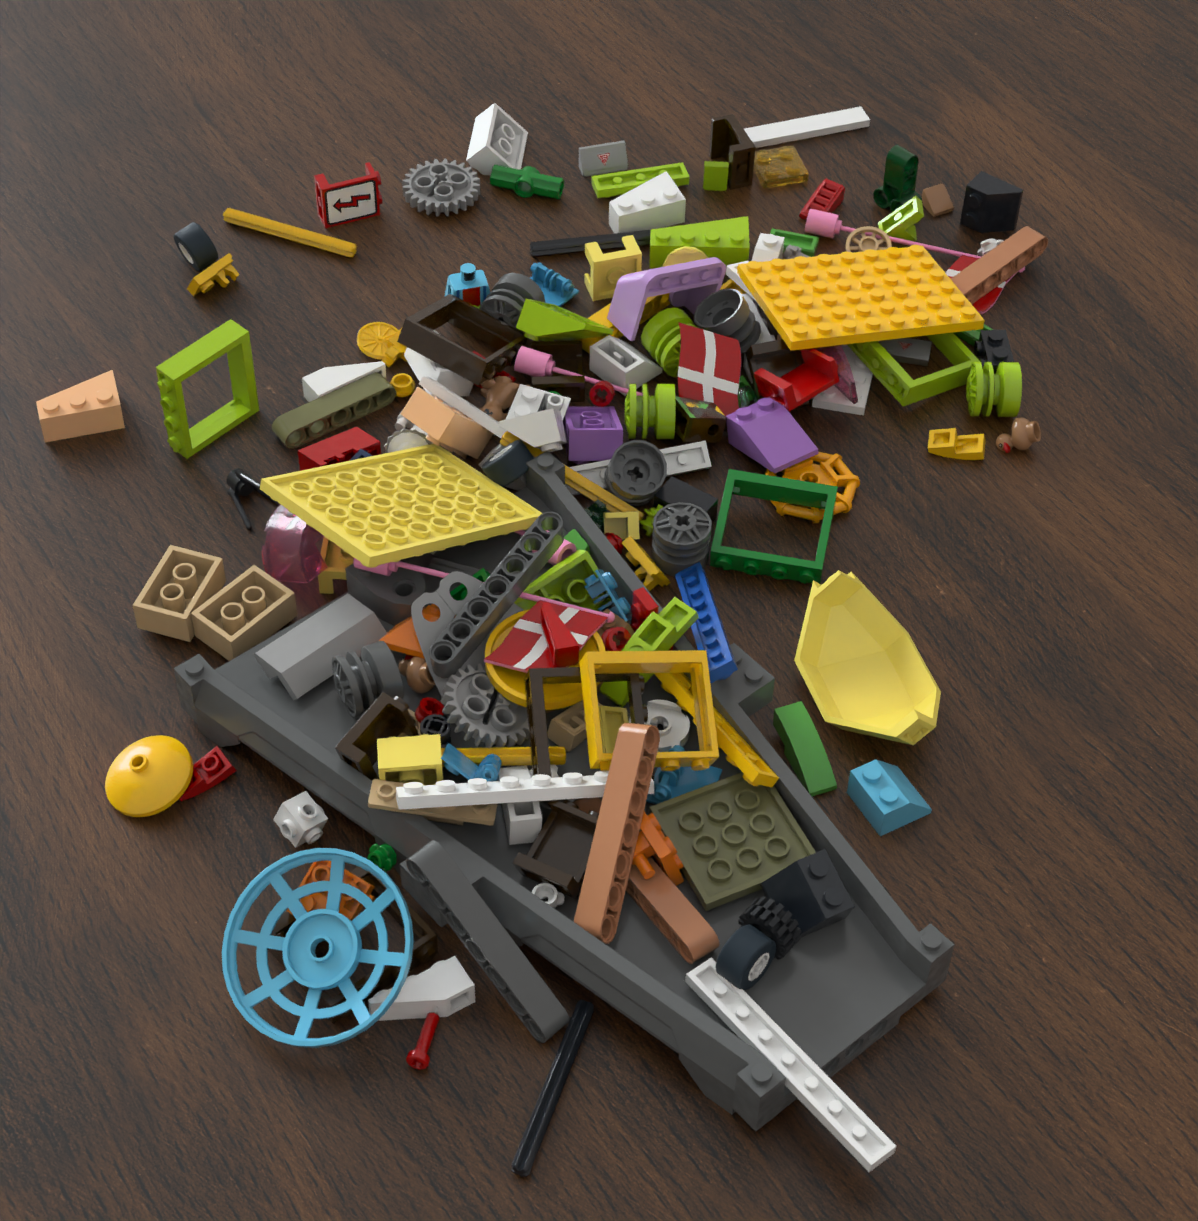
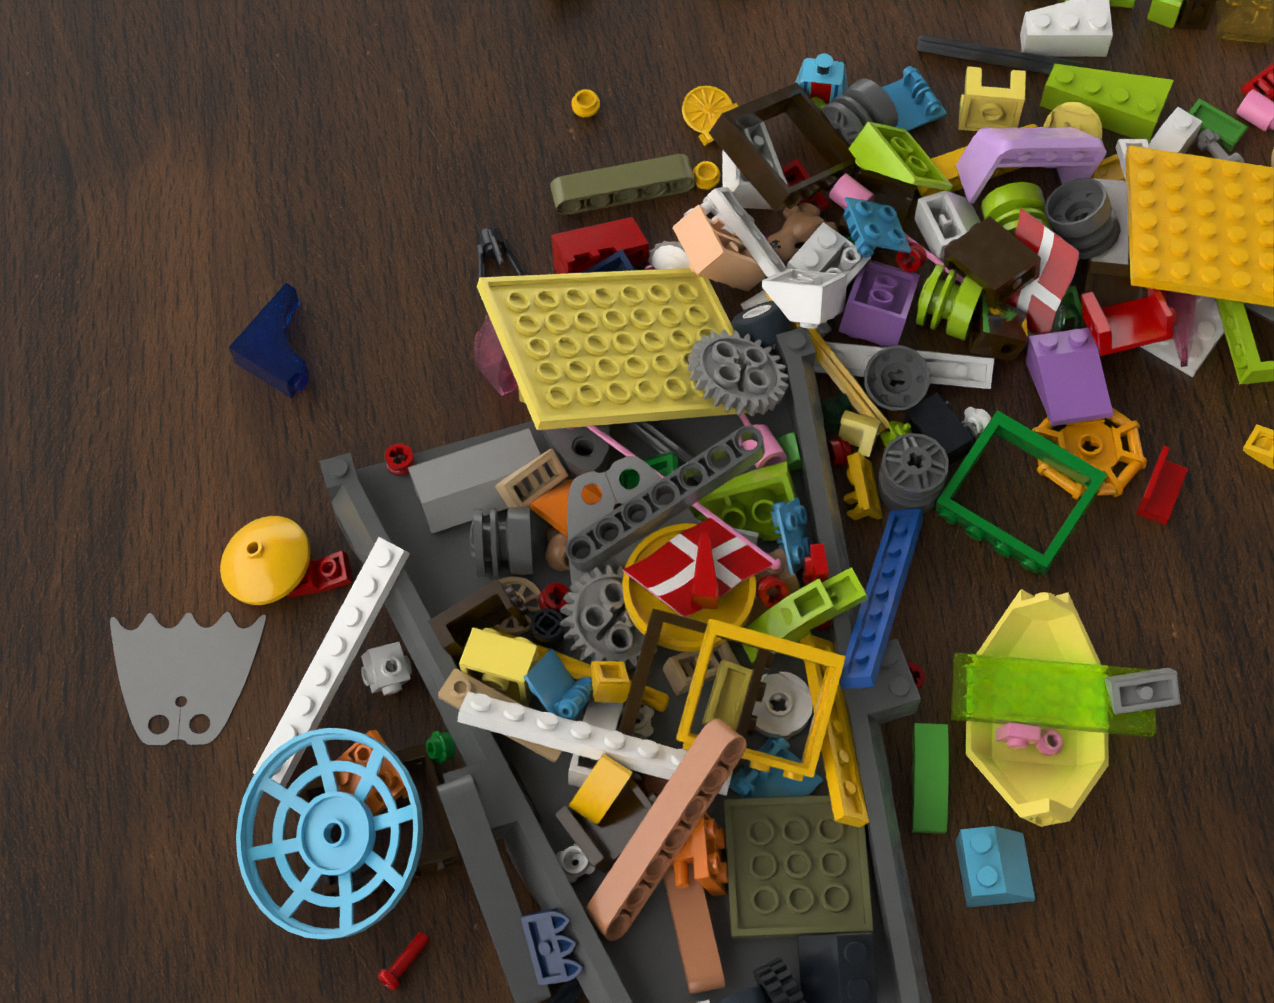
camera: 25 degrees right, 15 degrees up
(75, 618) = (265, 349): none -> clear blue arch
(81, 409) = (371, 100): light nougat wedge -> none
(89, 891) = (185, 661): none -> light grey piece
(176, 589) = (376, 358): tan brick -> none
(228, 339) = (479, 99): lime window -> none
(236, 647) = (395, 450): none -> red bush
(244, 613) = (429, 405): tan brick -> none
(255, 810) = (337, 652): none -> white plate
(273, 362) = (585, 103): none -> yellow plate
(332, 378) = (635, 147): white slope -> none
(355, 639) = (508, 494): none -> tan slope
(438, 990) = (435, 913): white slope -> none
(508, 495) = (717, 372): none -> light grey gear
(511, 750) = (609, 681): none -> yellow slope
(544, 826) = (600, 789): none -> yellow slope
(556, 965) = (550, 947): none -> dark blue plate
(562, 375) = (874, 226): none -> dark azure hinge
(675, 366) = (993, 260): none -> dark brown panel
(713, 485) = (976, 420): none -> white plate
(862, 692) = (1021, 735): none -> bright pink plate
(873, 652) = (1042, 695): none -> clear neon green plate
(880, 494) = (1162, 489): none -> red panel
(943, 623) = (1143, 690): none -> light grey slope

